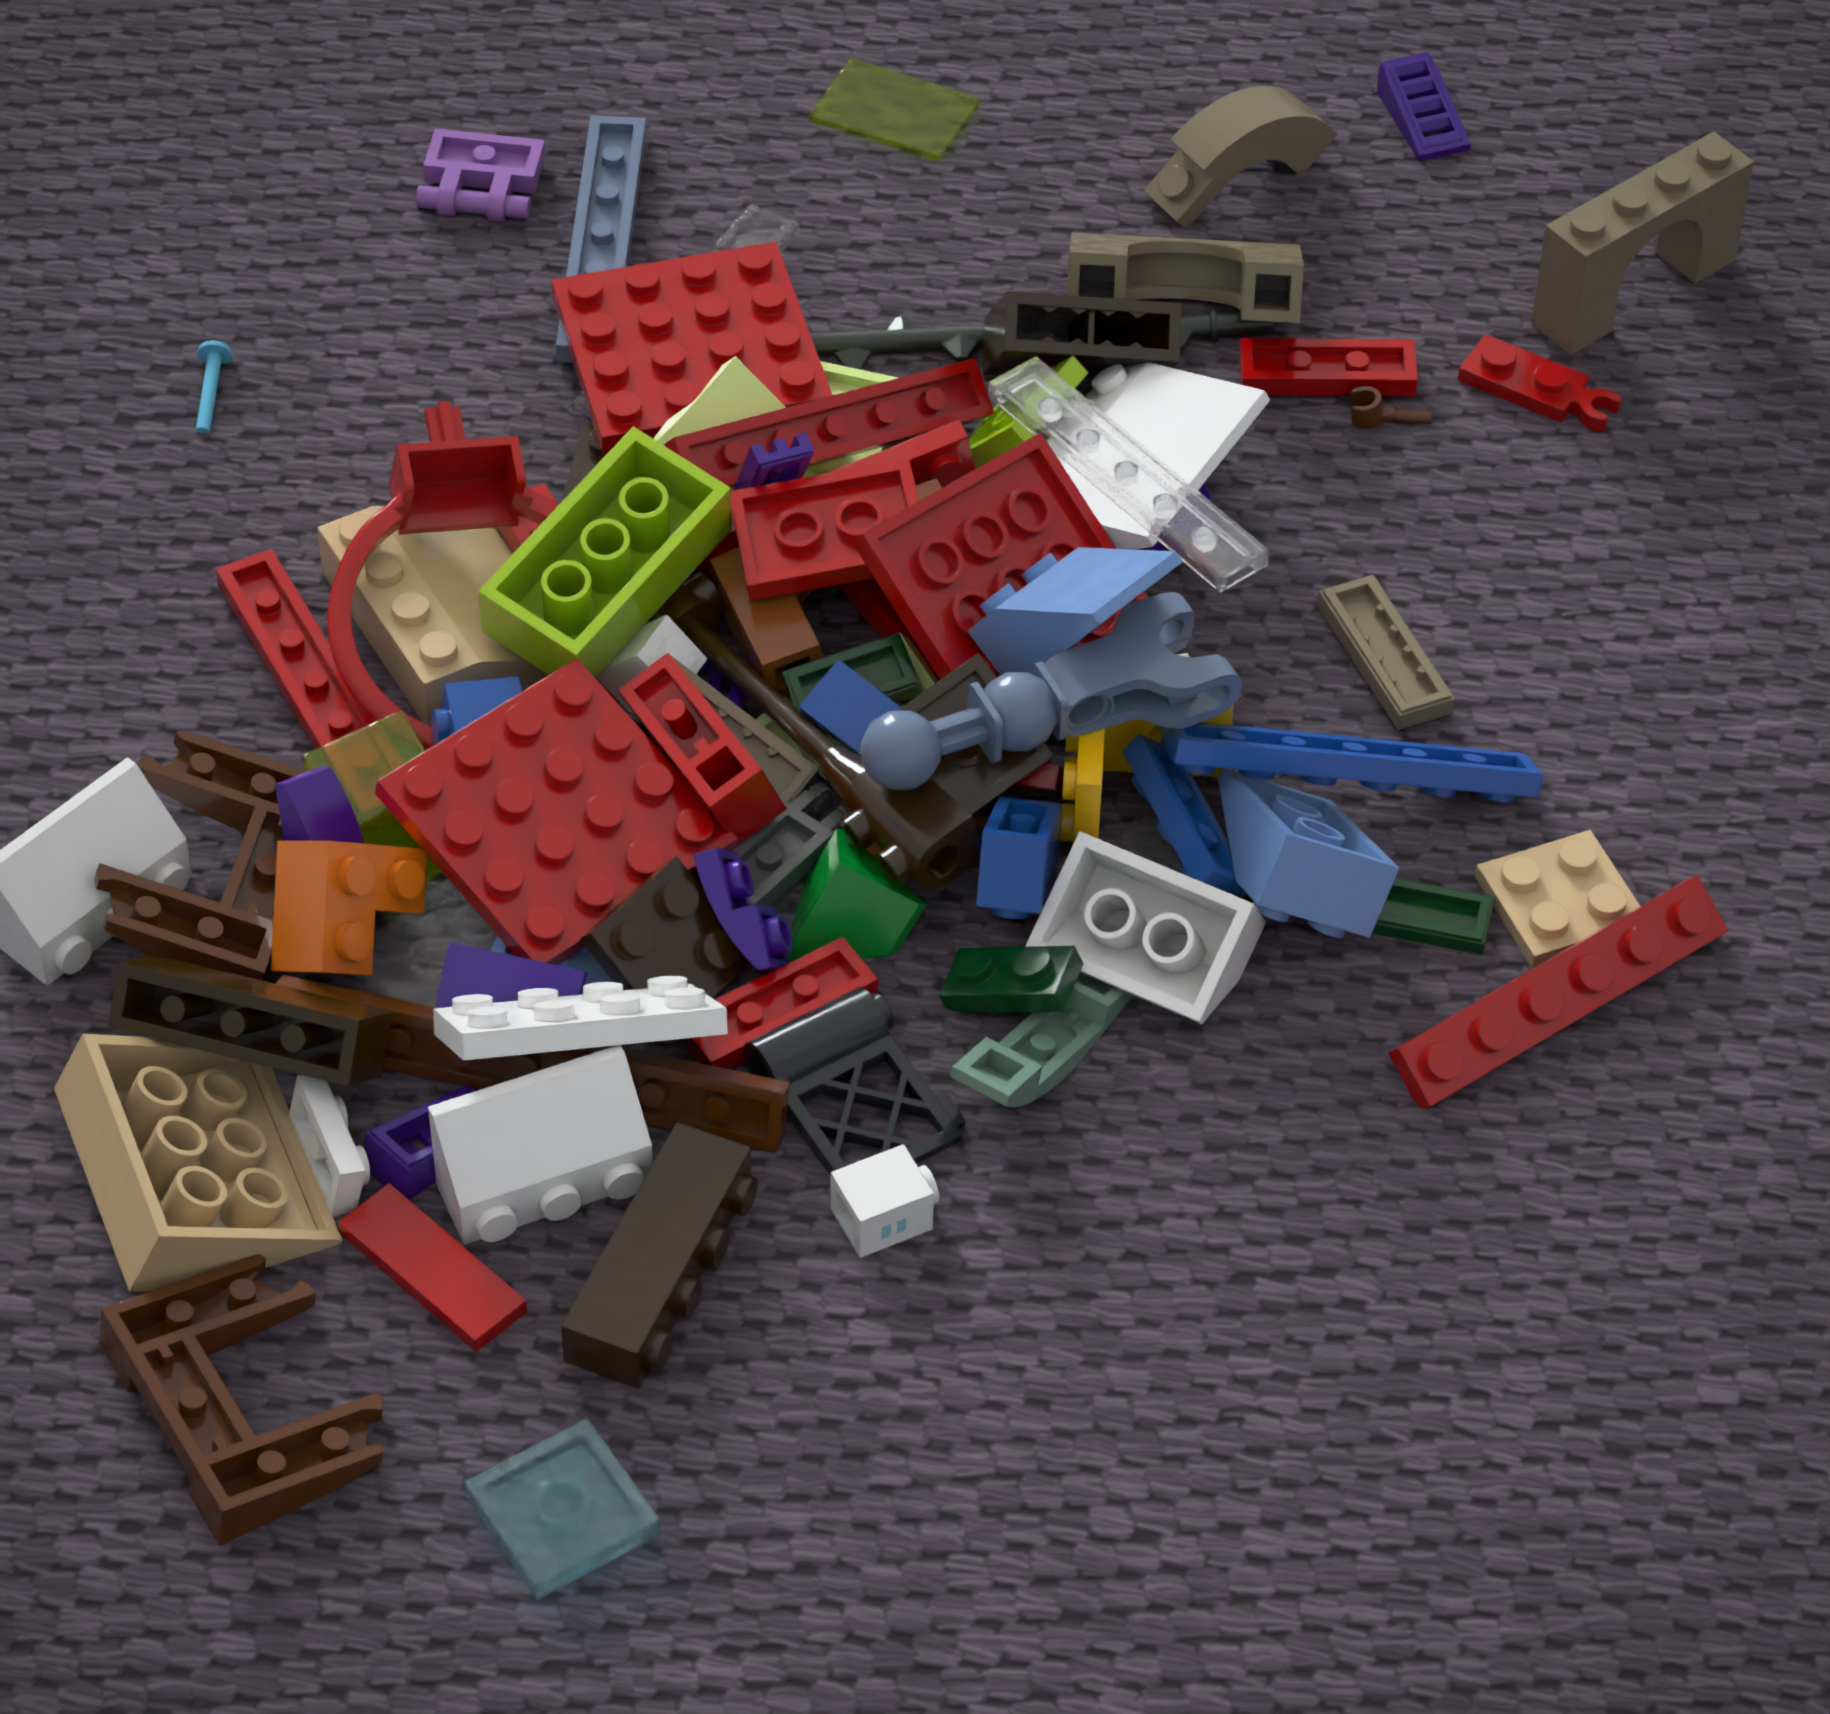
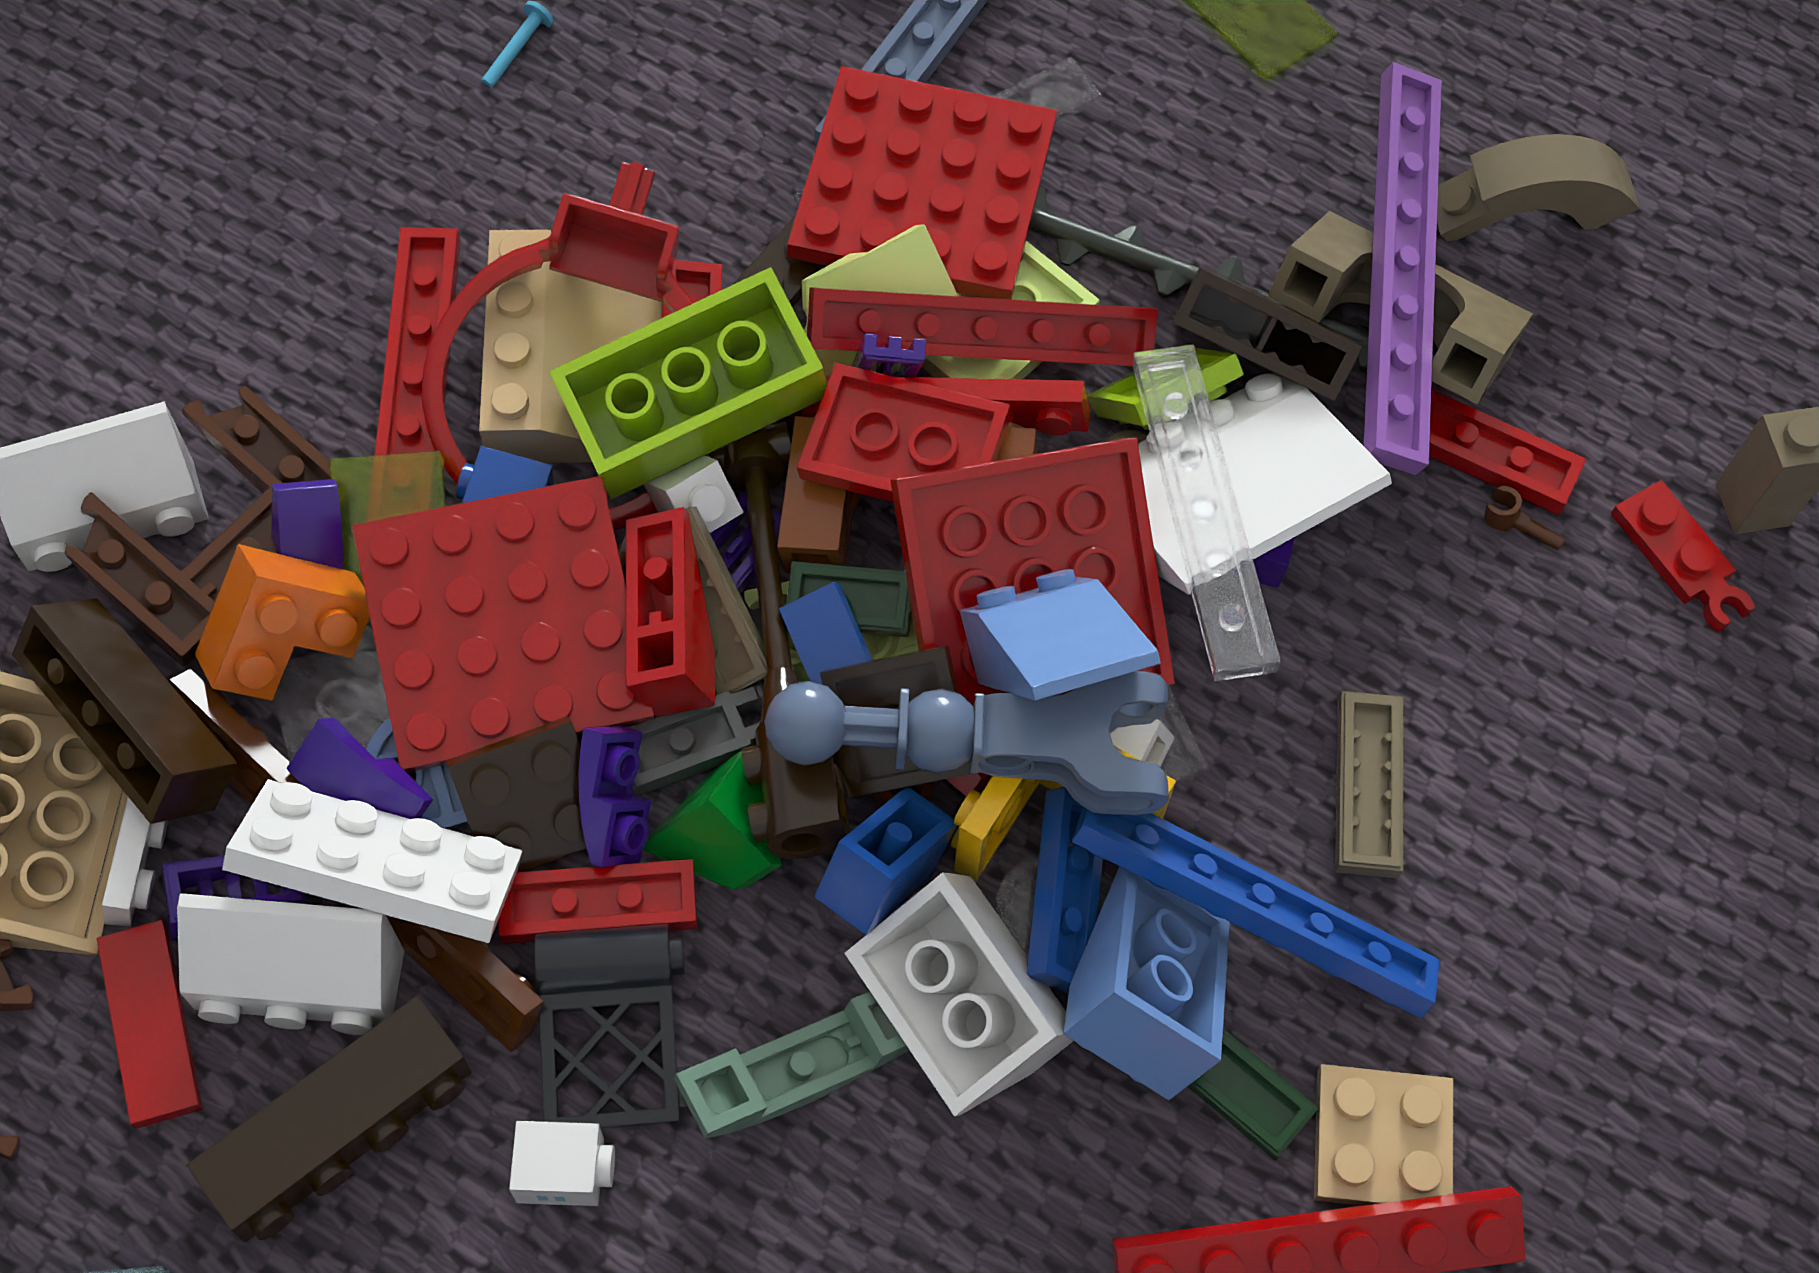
camera: 25 degrees right, 15 degrees up
(1011, 979) = (814, 981): dark green plate -> none
(1171, 238) = (1403, 271): none -> medium lavender plate
(1416, 77) = (1740, 179): dark purple slope -> none

